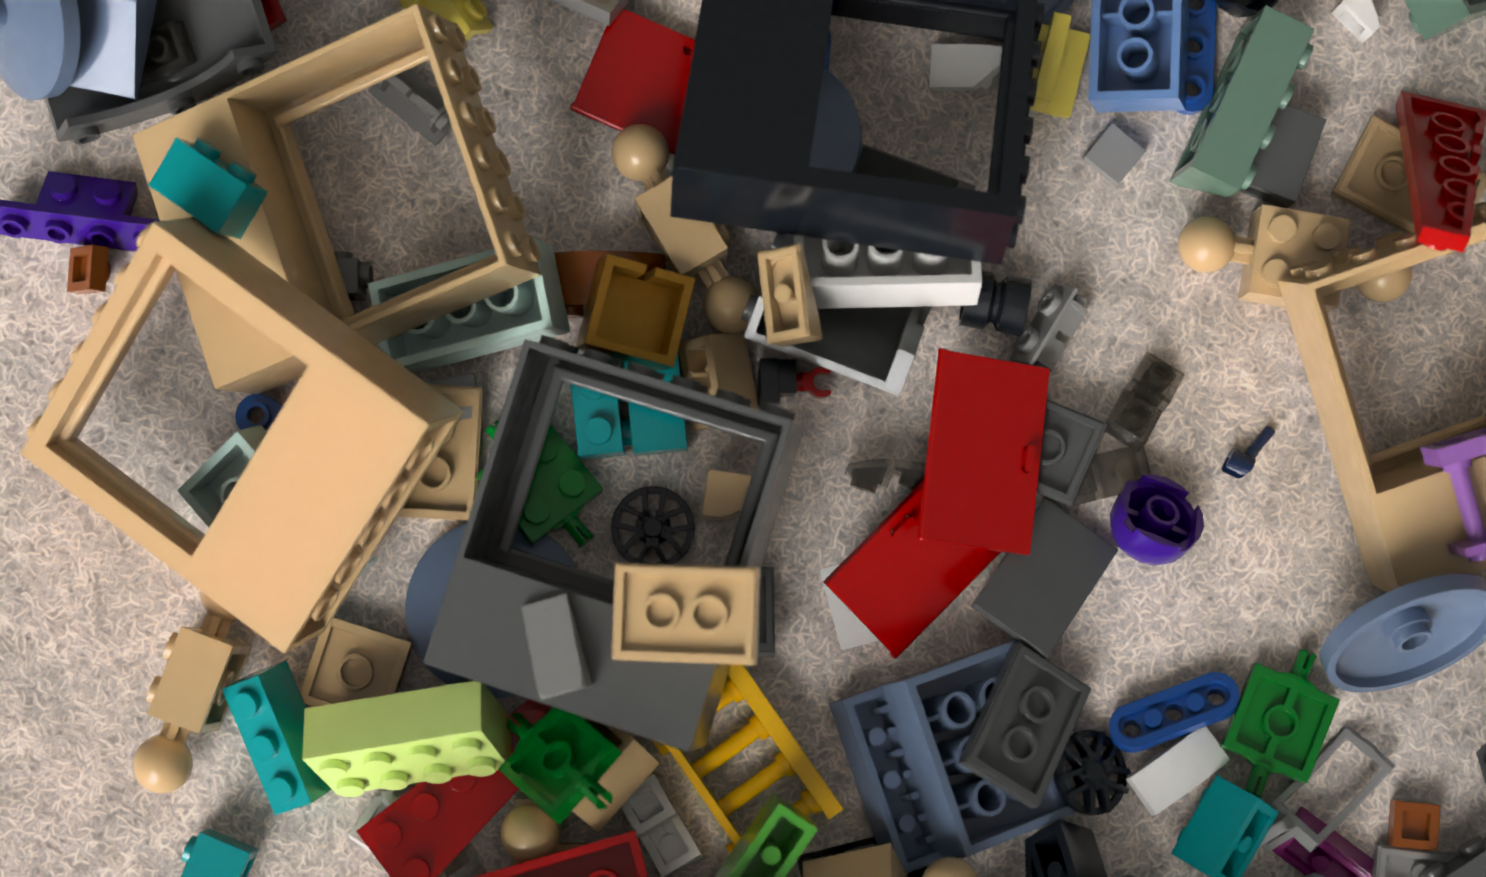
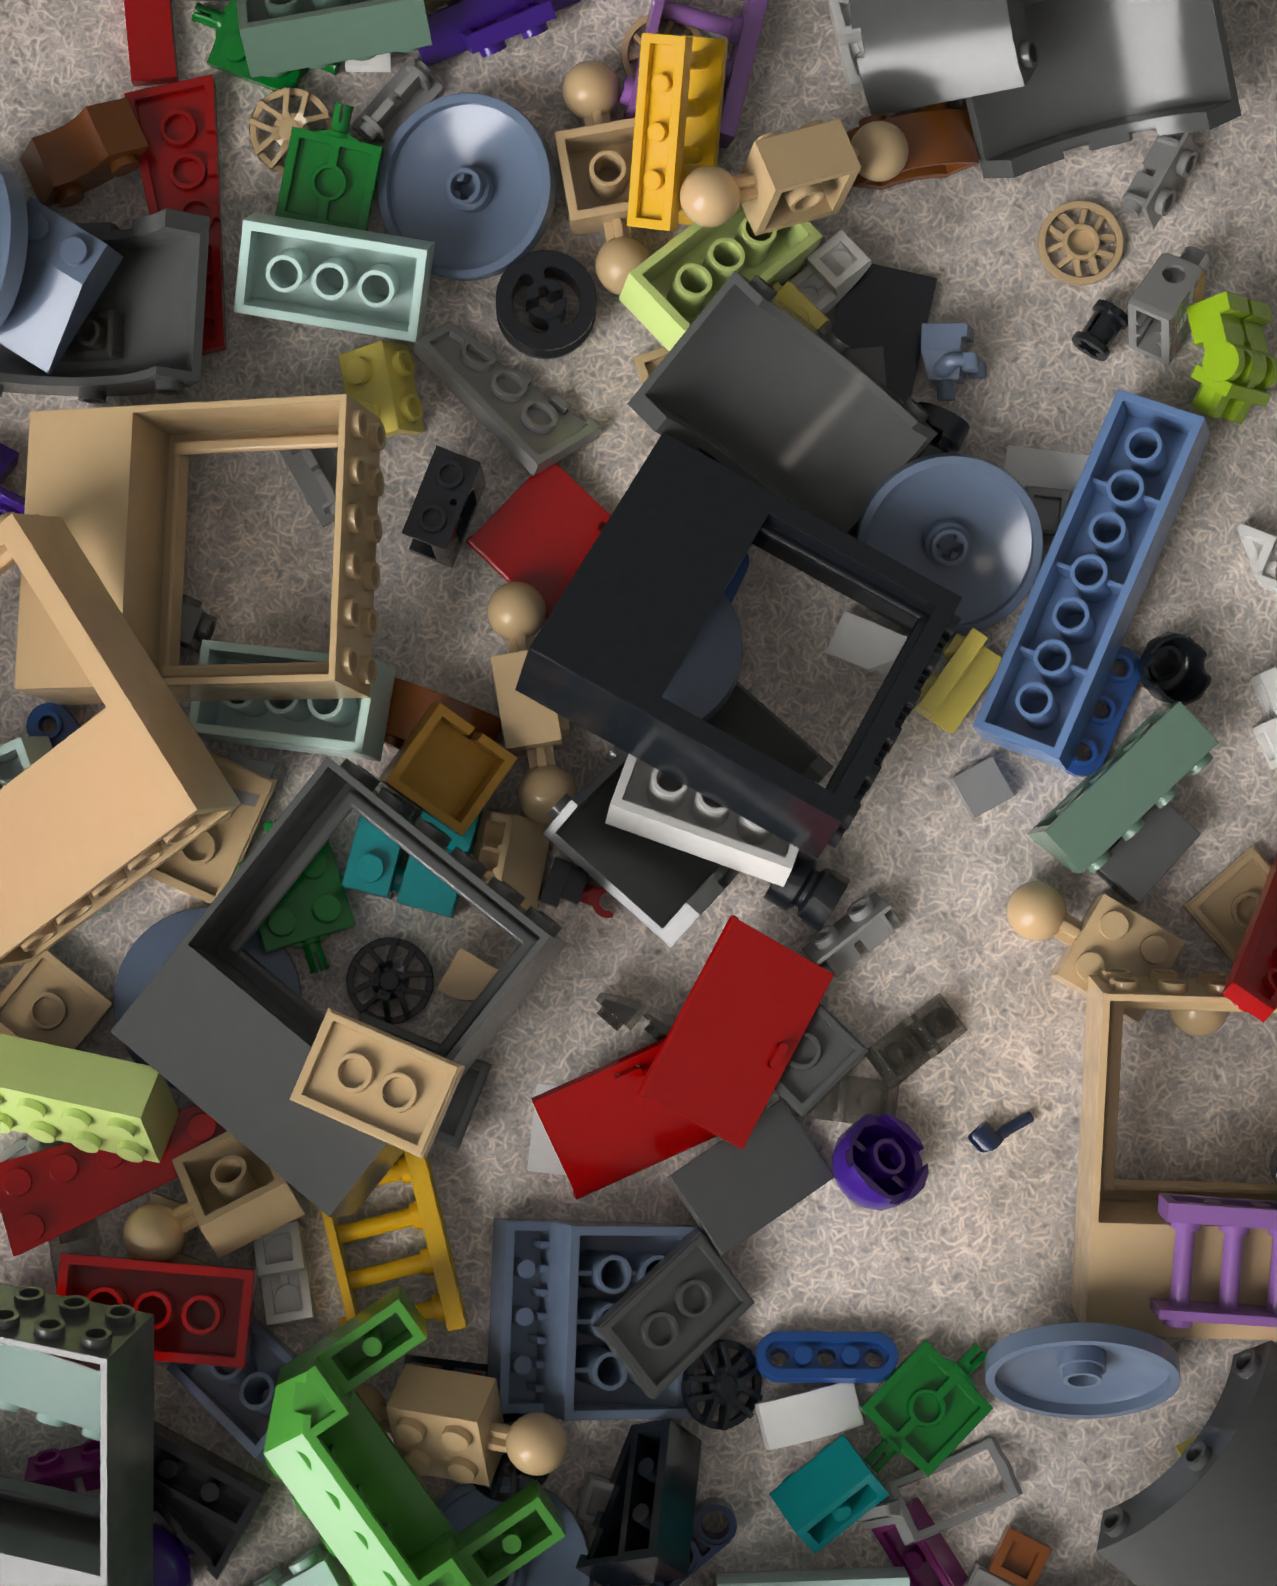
camera: 20 degrees right, 0 degrees up
(209, 188) = (81, 493): teal brick -> none
(540, 81) = (445, 495): none -> black panel
(555, 647) = (240, 1066): light grey slope -> none
(559, 762) = (205, 1177): green plate -> none
(788, 297) = (597, 812): tan slope -> none

